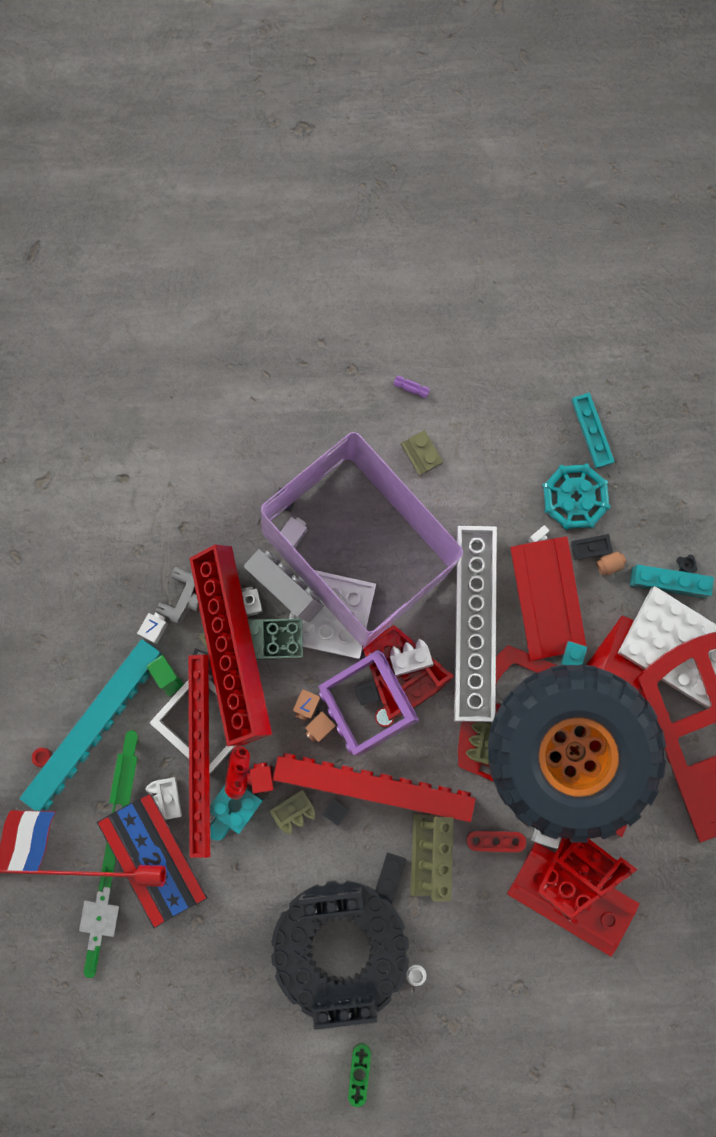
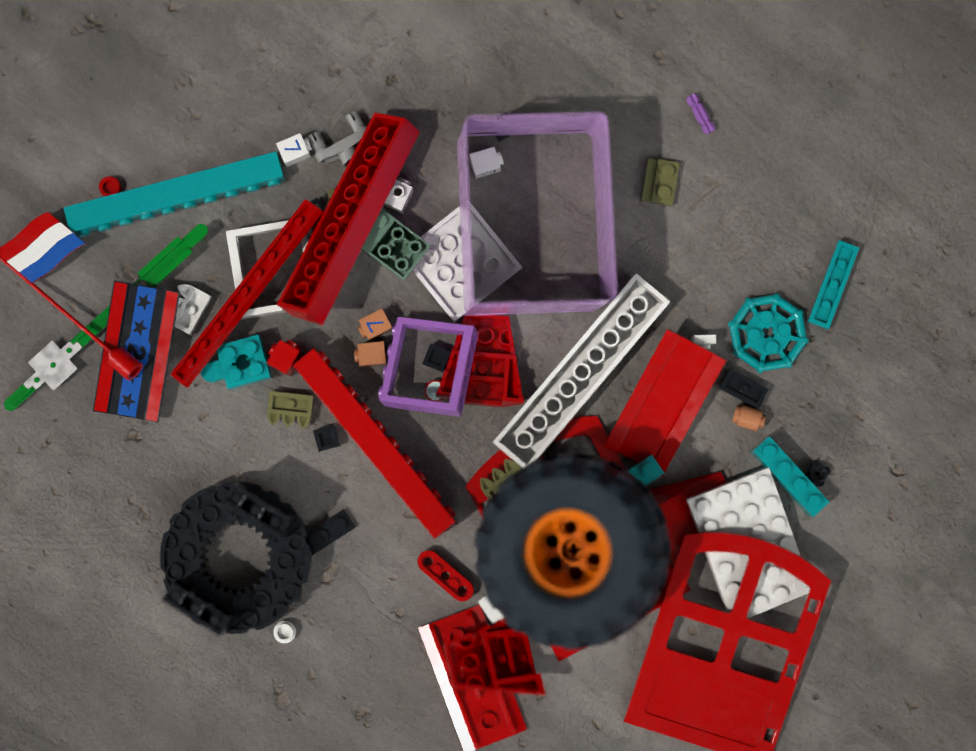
camera: 40 degrees right, 5 degrees up
(165, 675) = (271, 200): green slope -> none
(238, 760) = (278, 325): red plate -> none
(284, 585) = (438, 204): light grey brick -> none
(363, 1090) = (154, 681): green beam -> none
(411, 658) = (498, 358): white plate -> none
(432, 857) = (378, 542): olive fence -> none

